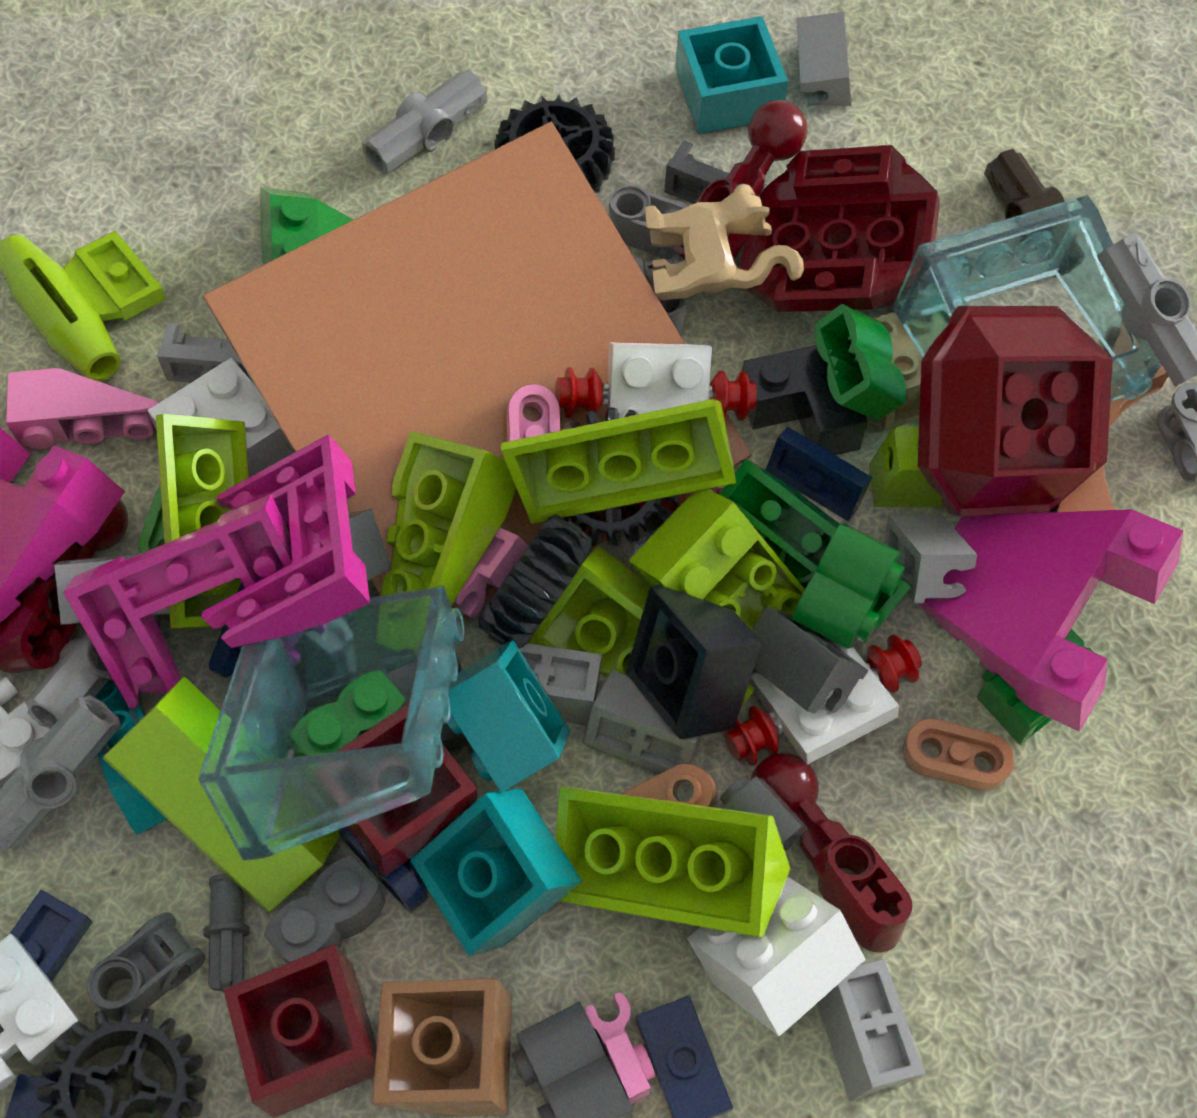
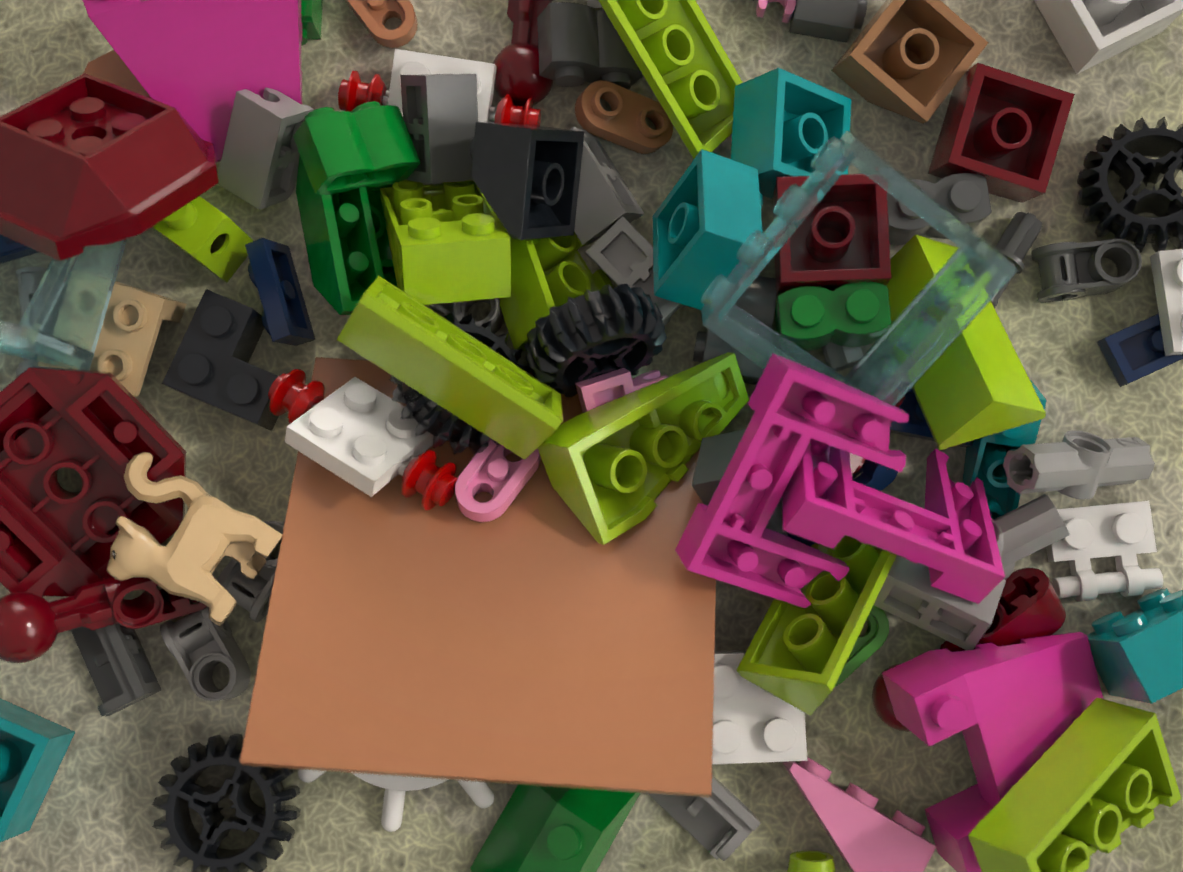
camera: 140 degrees left, 20 degrees up
(860, 362) = (172, 323): green brick -> none

